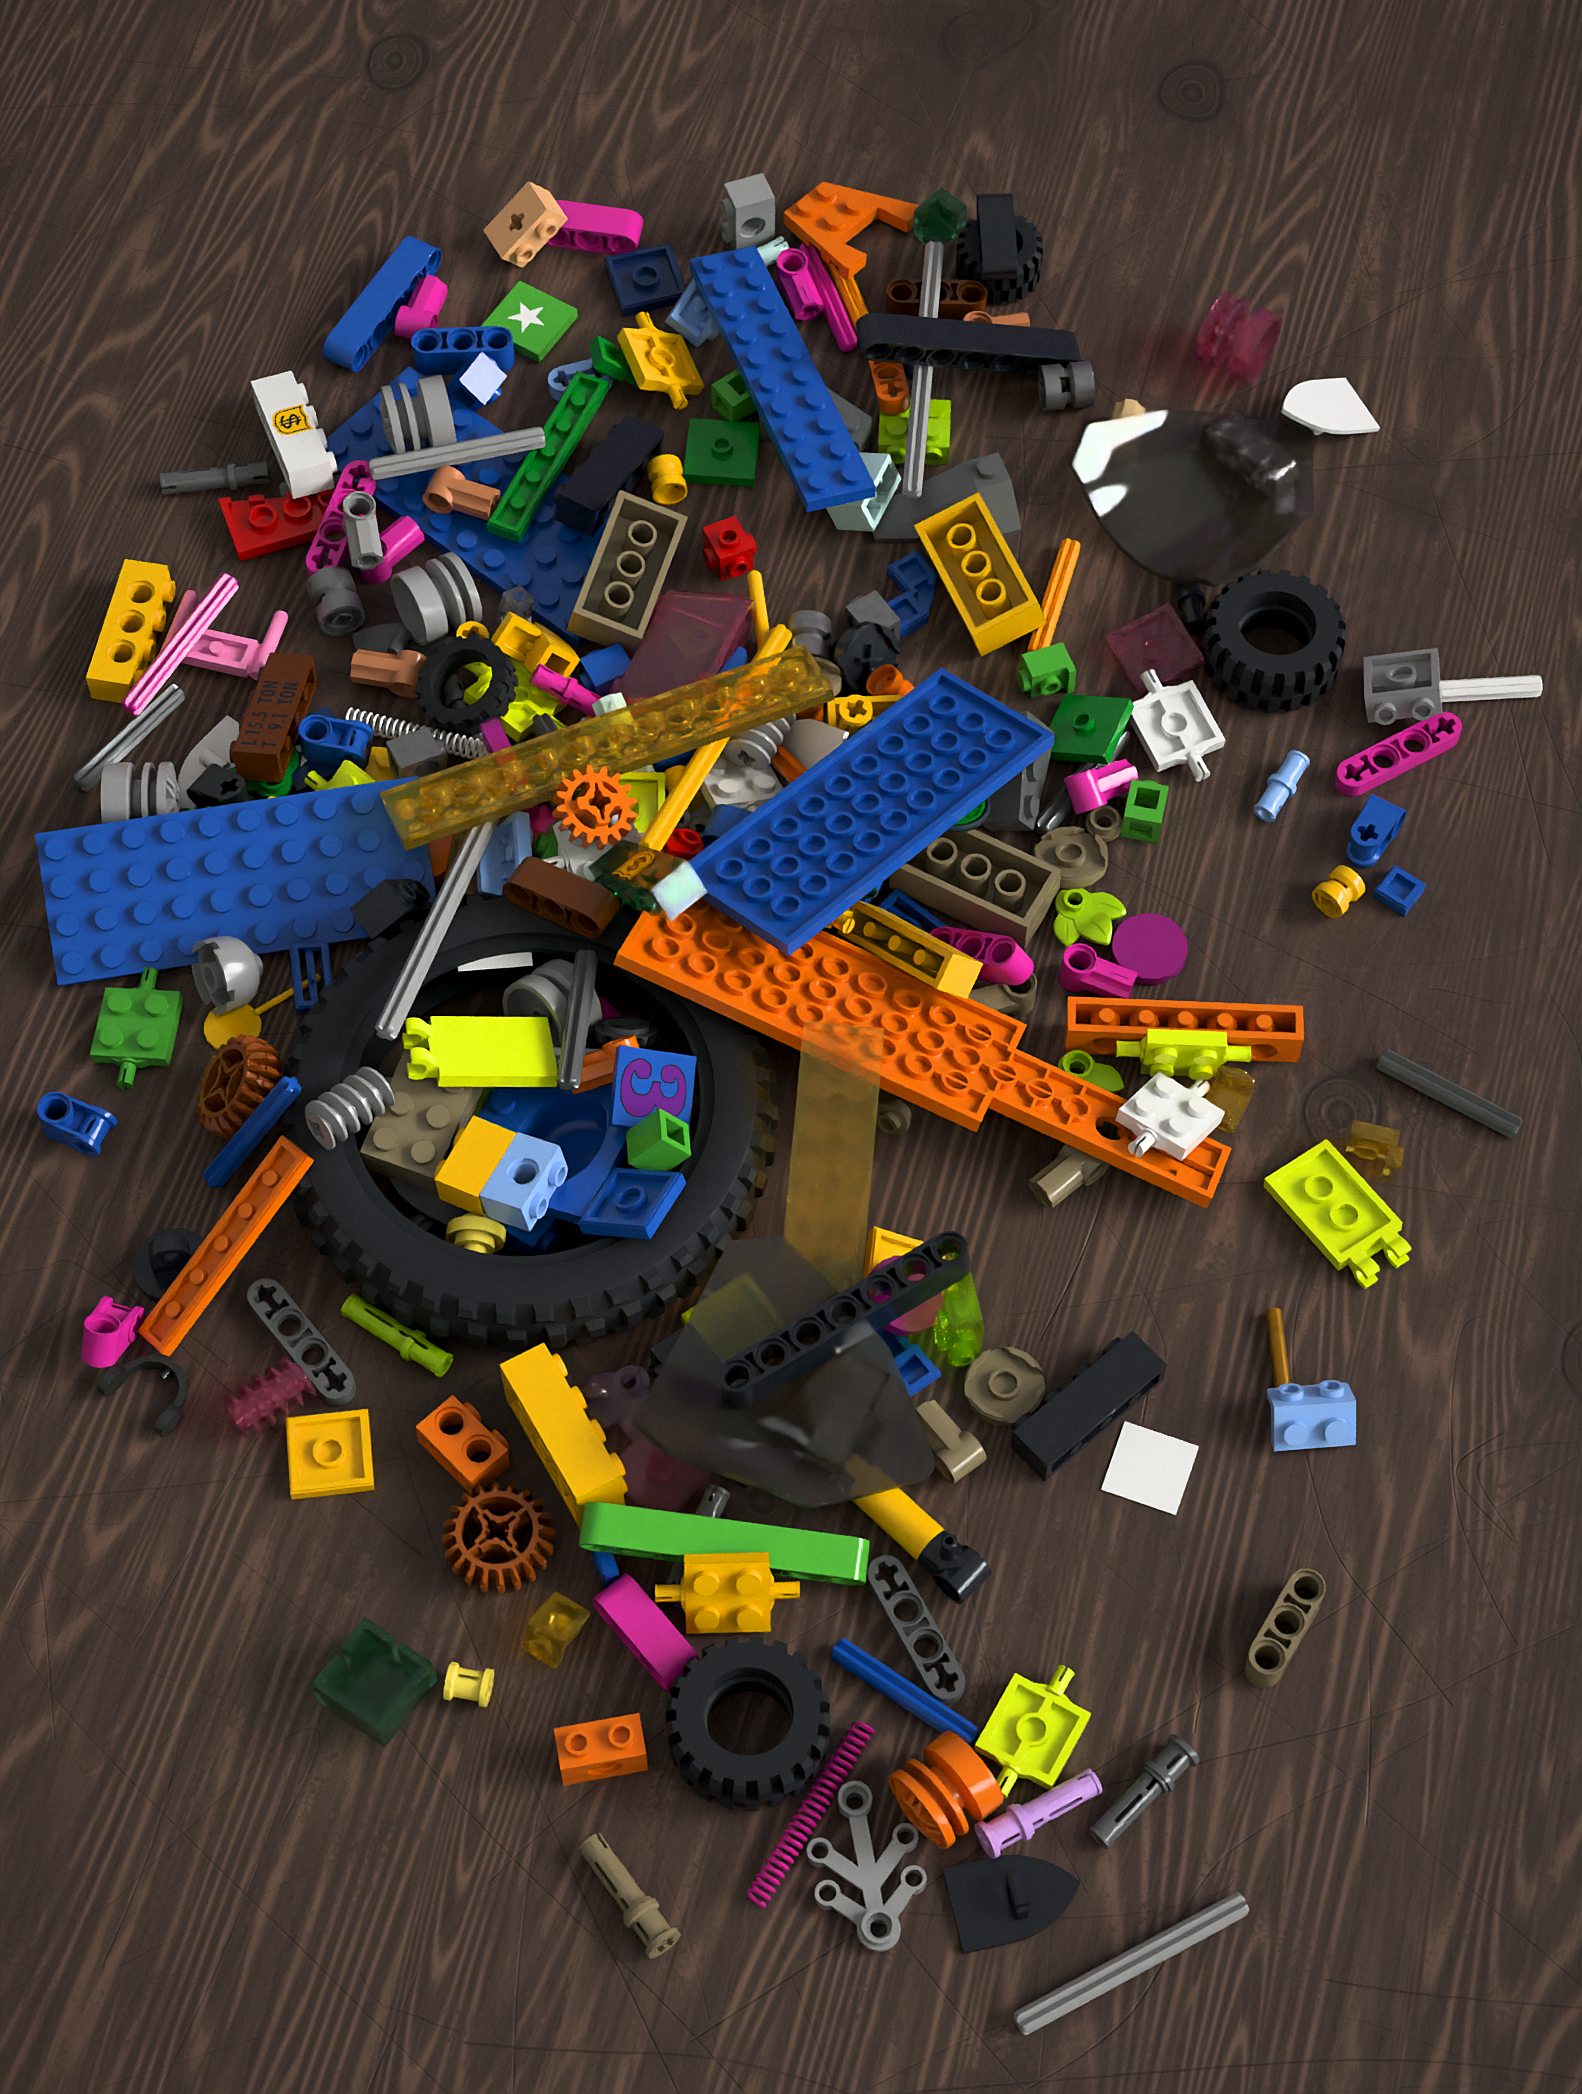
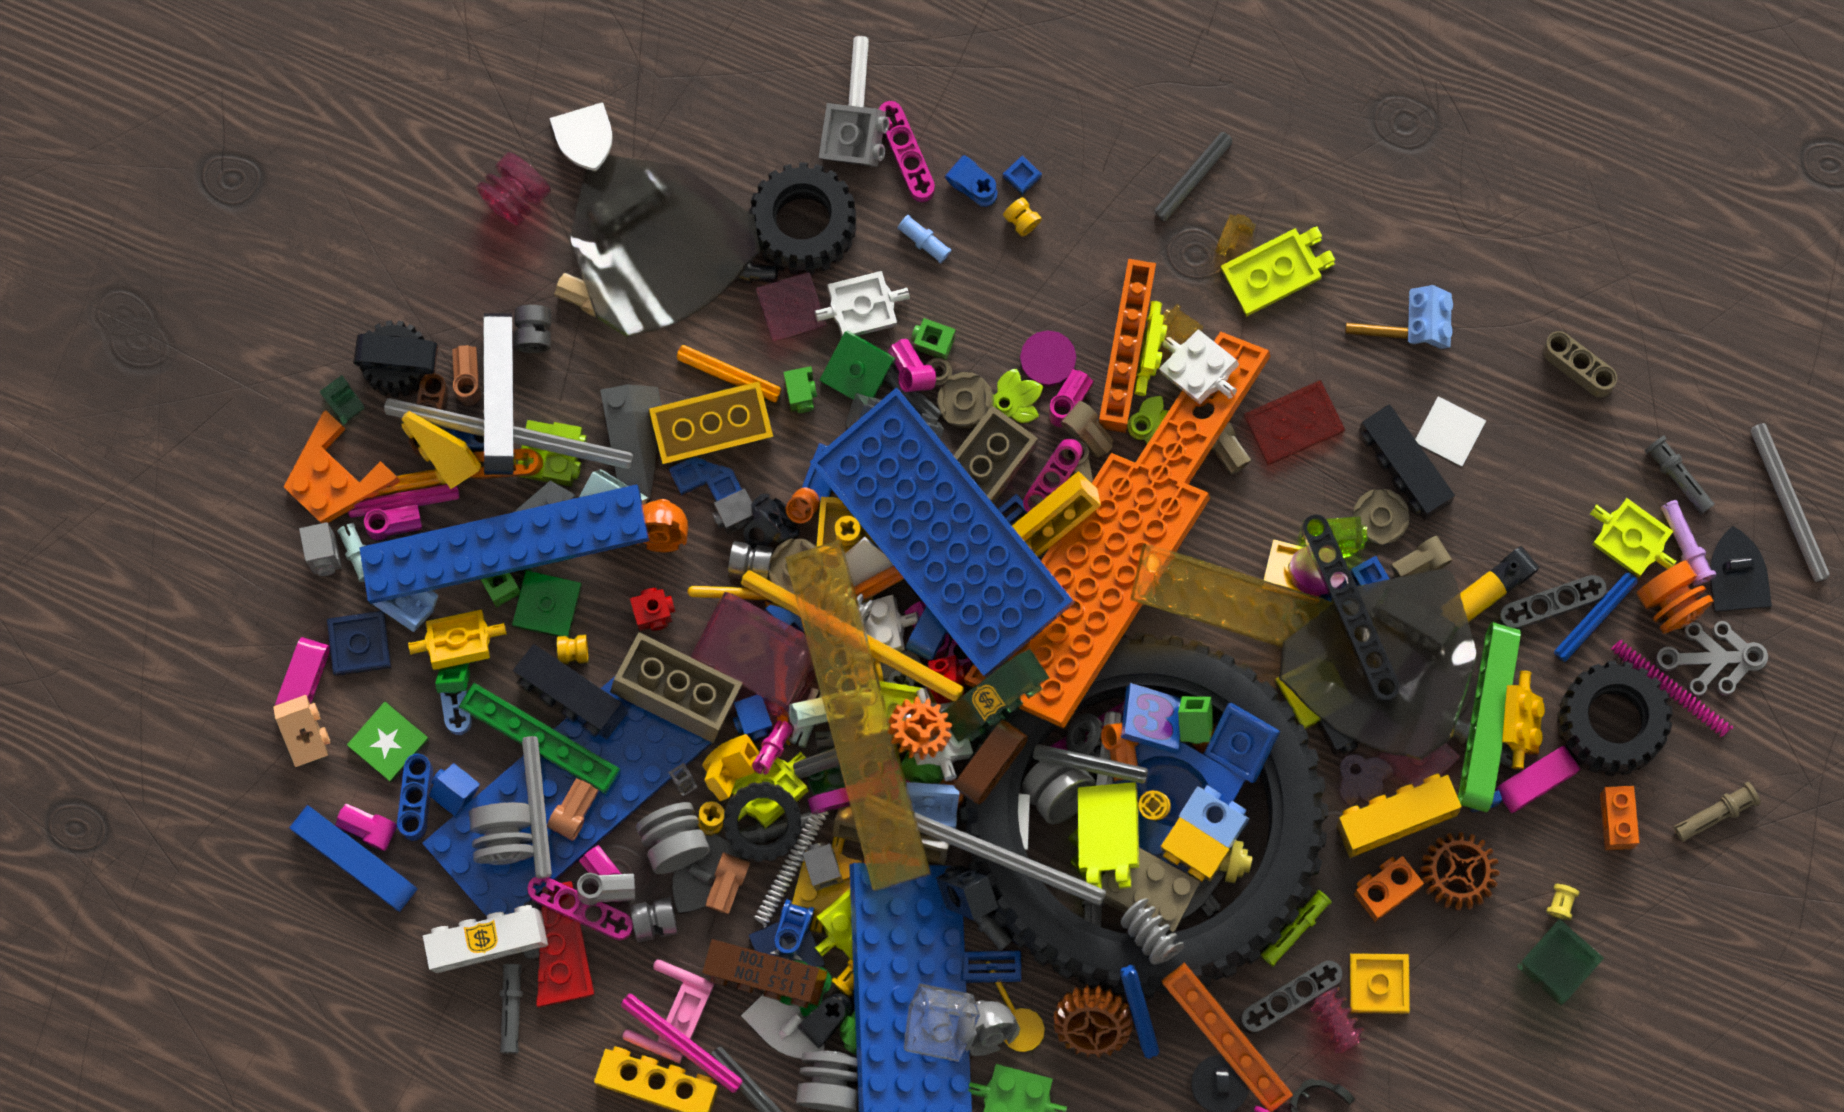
camera: 80 degrees left, 15 degrees up
(221, 902) = (940, 1022): none -> clear slope
(534, 1112) = (1159, 806): none -> yellow wheel
(554, 1628) = (1528, 840): clear yellow bracket -> none
(840, 542) = (665, 526): none -> orange cylinder
(895, 289) = (447, 452): none -> yellow slope
(1057, 980) = (1083, 425): none -> dark tan piece
(1121, 1260) = (1294, 422): none -> clear red tile

